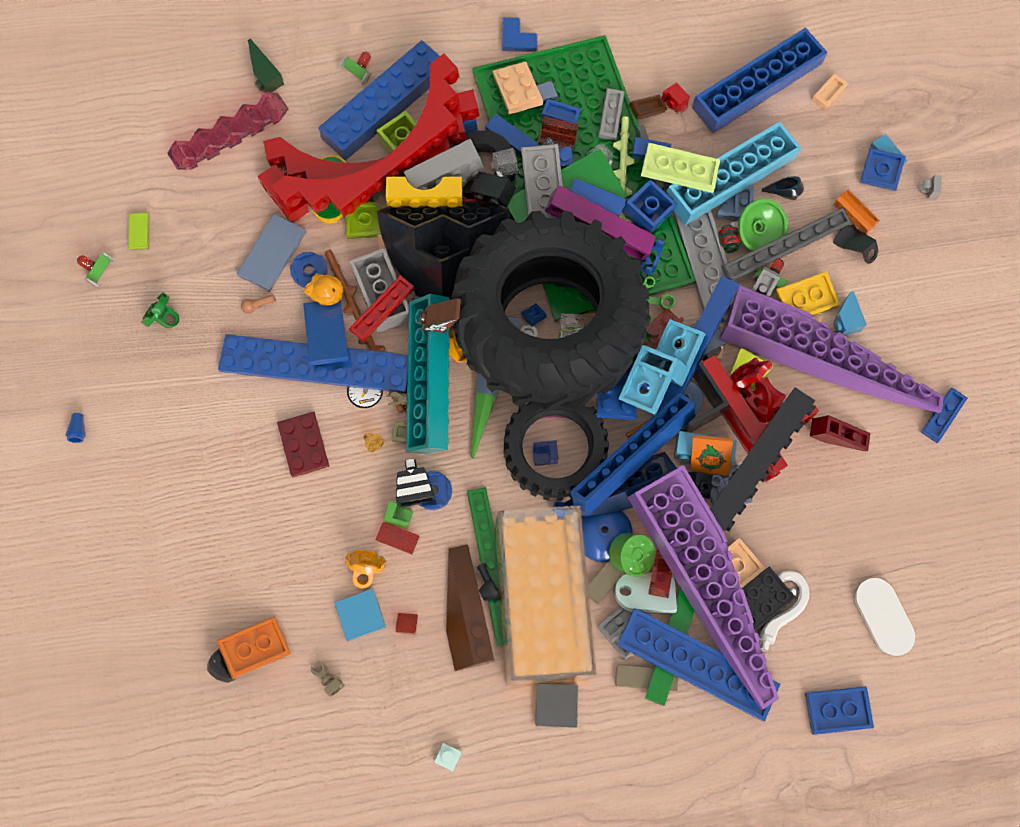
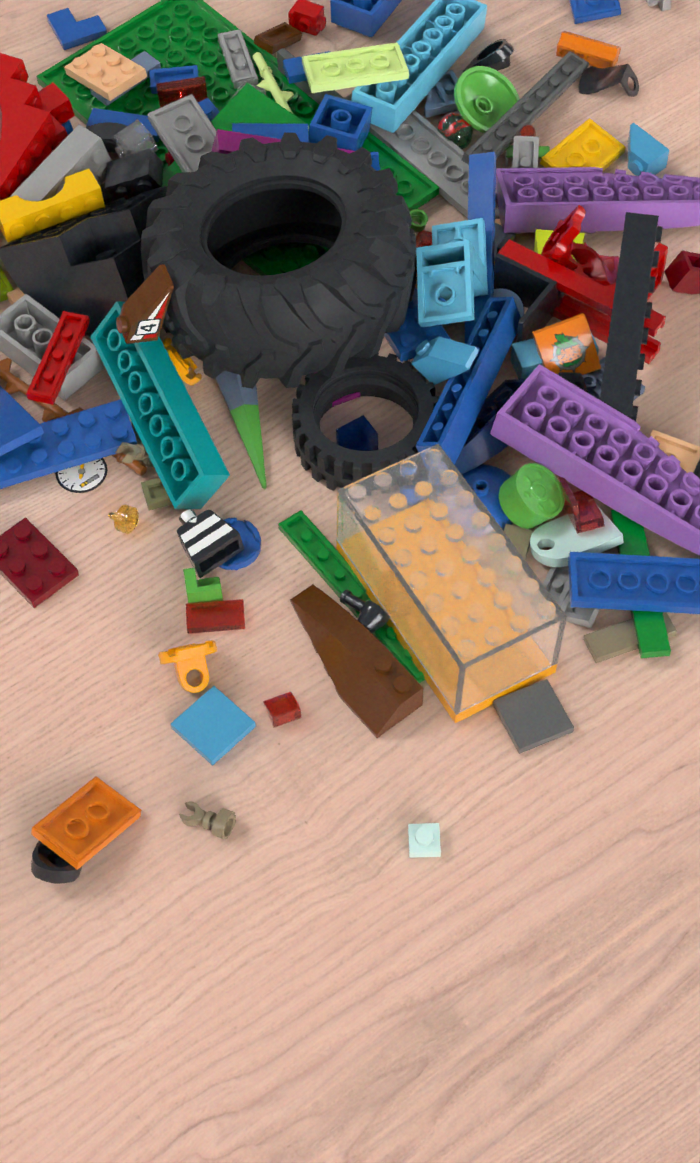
camera: 20 degrees left, 15 degrees down
(622, 433) = (443, 359): none -> dark azure slope

